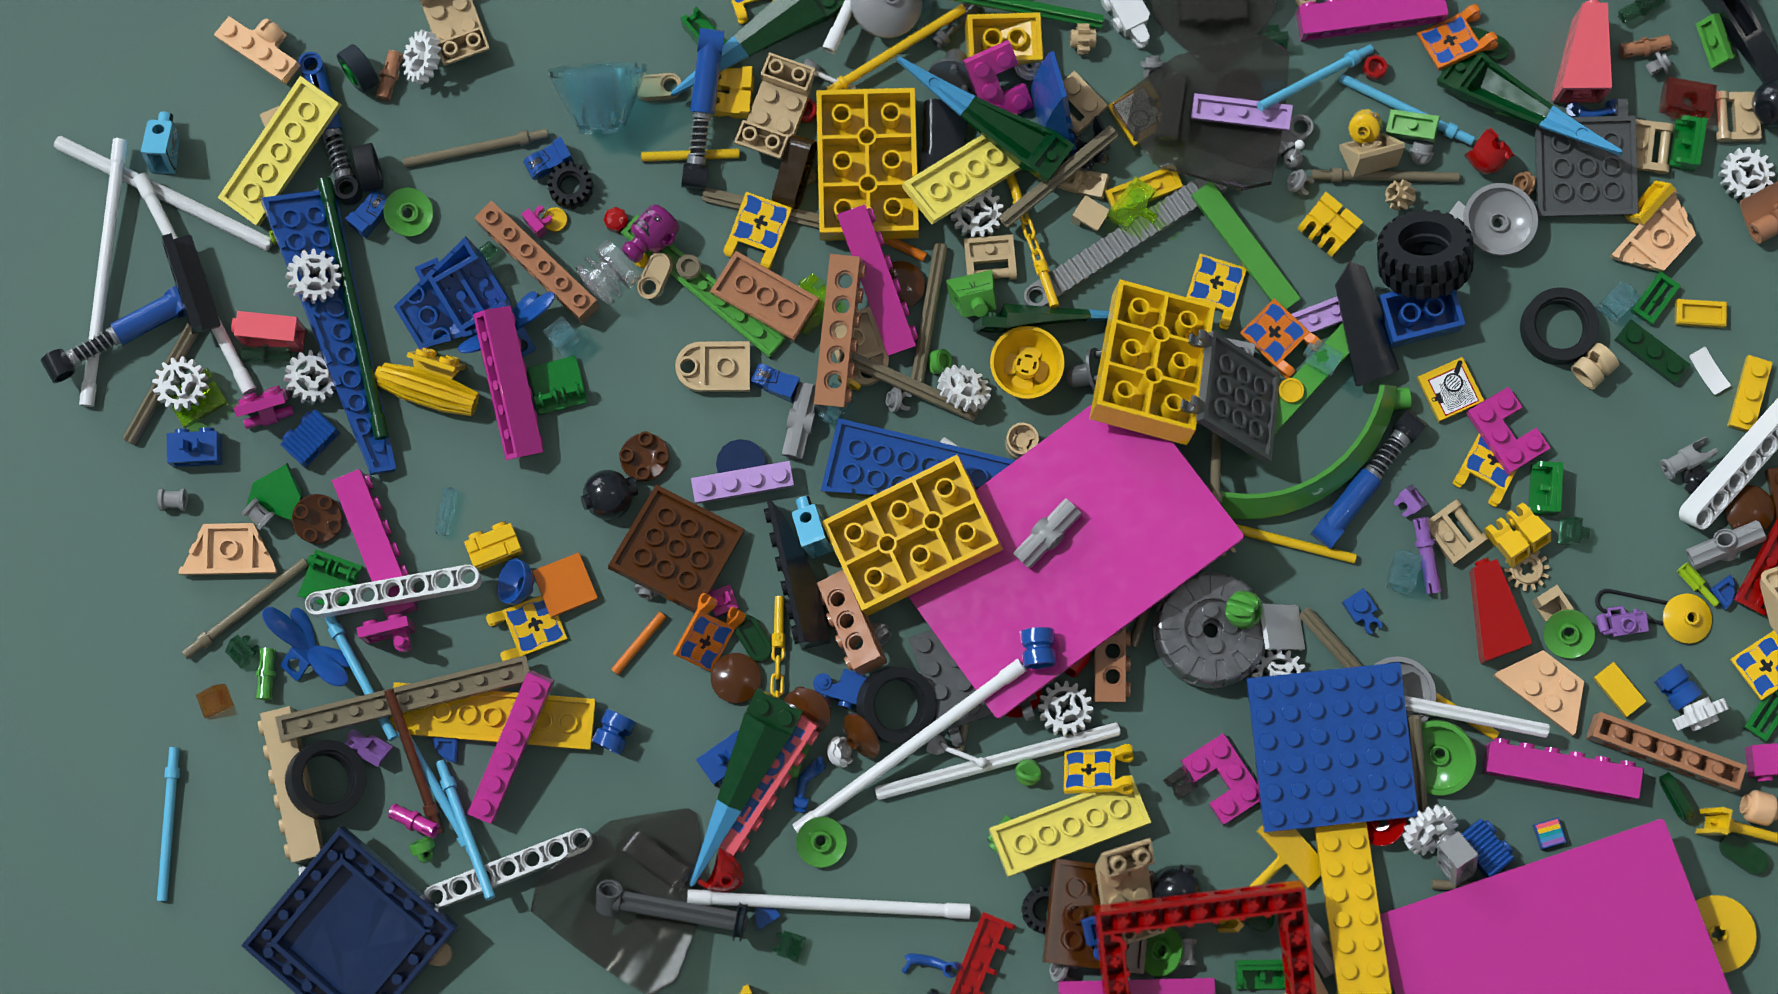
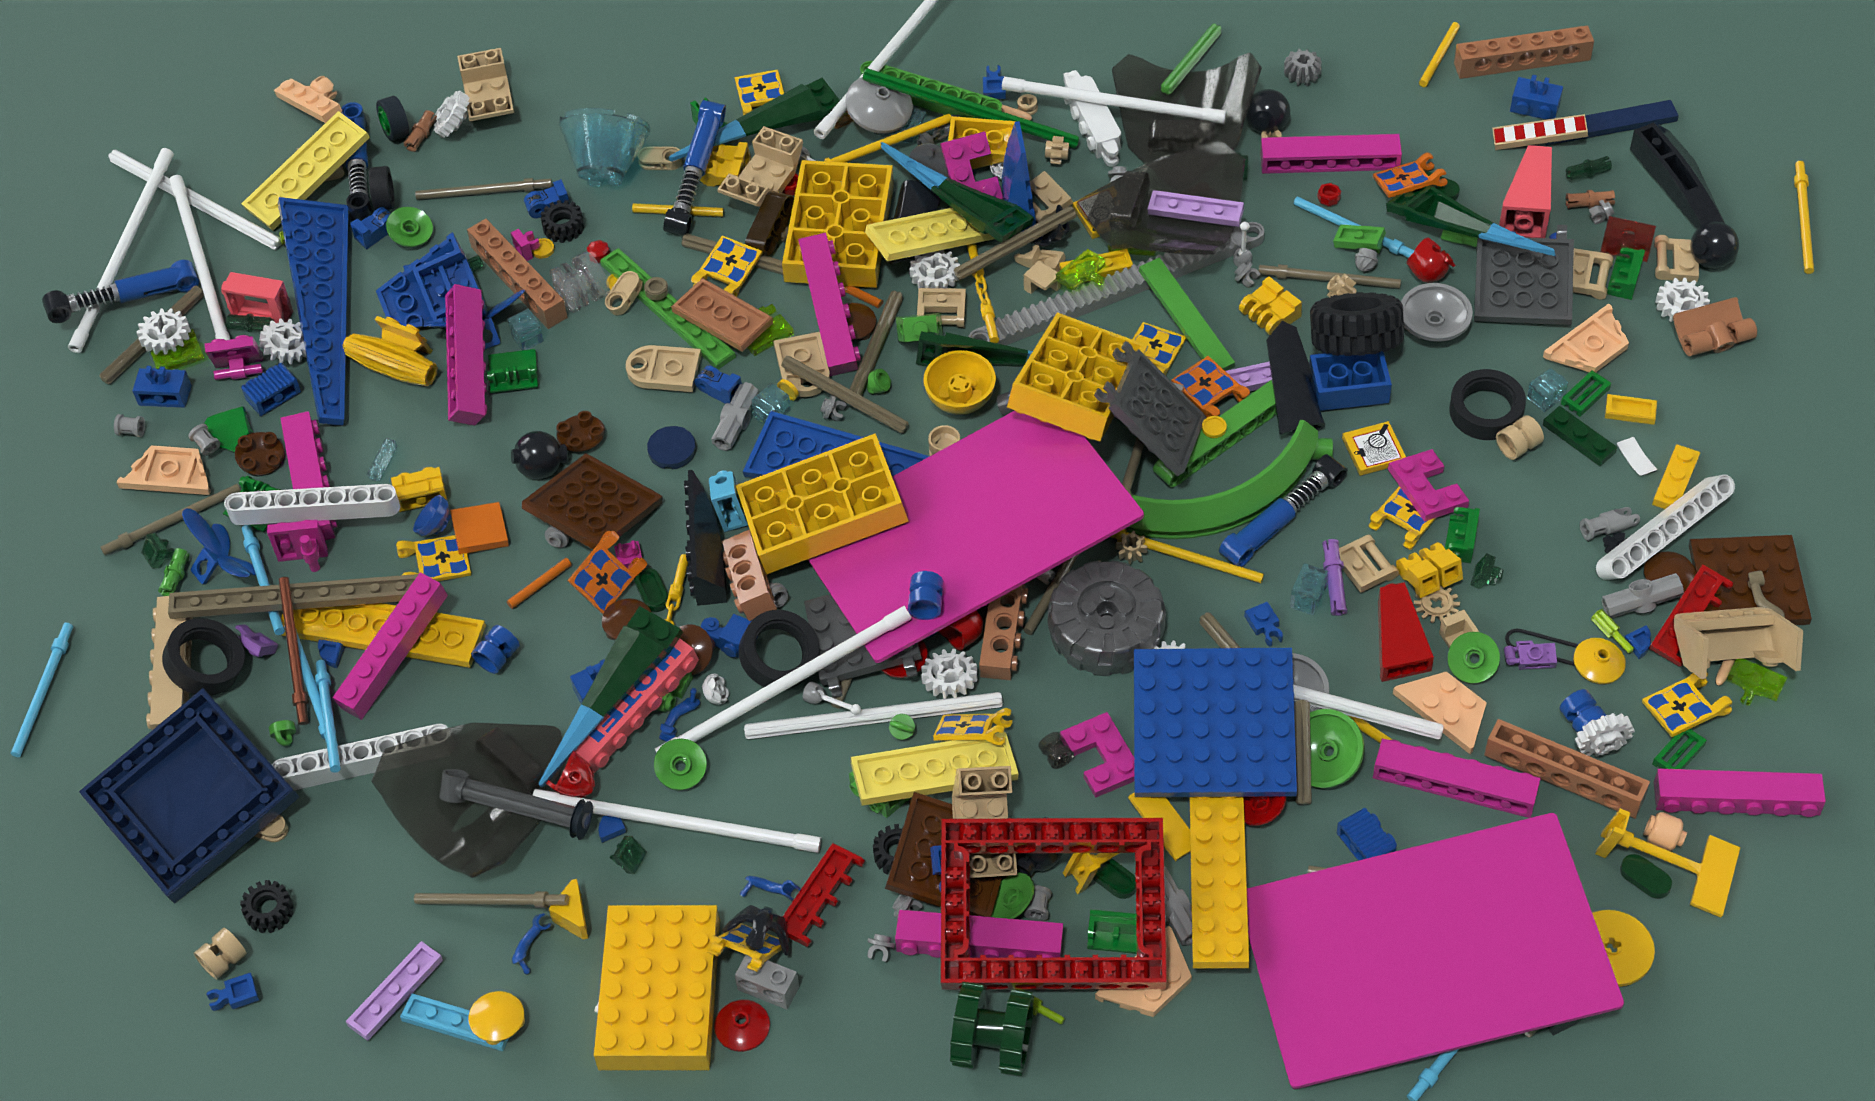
camera: 10 degrees right, 25 degrees down
(161, 144) = (201, 160): medium azure torso -> none
(191, 283) = (196, 257): black panel -> none
(214, 700) = (119, 591): clear orange slope -> none
(320, 283) = (307, 257): white gear -> none
(377, 417) = (337, 349): dark green piece -> none
(413, 821) = (280, 706): dark pink pin -> none
(651, 232) = (627, 253): magenta piece -> none
(742, 482) = (668, 457): lavender plate -> none
(838, 267) = (792, 279): nougat brick -> none
(861, 736) = (739, 673): reddish brown dish -> none
(964, 388) = (896, 399): white gear -> none
(1047, 533) = (952, 505): light grey piece -> none
(1244, 609) = (1137, 585): bright green piece -> none
(1282, 627) = (1177, 618): white piece -> none
(1332, 355) = (1247, 398): clear light blue brick -> none
(1350, 59) = (1305, 184): medium azure bar -> none
(1365, 126) = (1318, 238): yellow head -> none
(1373, 156) = (1318, 254): tan slope -> none
(1412, 499) = (1322, 529): medium lavender tile -> none
(1429, 829) = (1298, 811): white gear -> none
(1456, 858) = (1334, 837): light grey brick -> none
(1525, 182) = (1466, 288): medium nougat plate -> none
(1549, 833) = (1436, 831): tile -> none
(1619, 689) = (1523, 713): yellow tile -> none
(1651, 201) = (1585, 314): yellow tile -> none
(1676, 797) = (1575, 813): dark green tile -> none
(1715, 41) = (1658, 198): bright green plate -> none

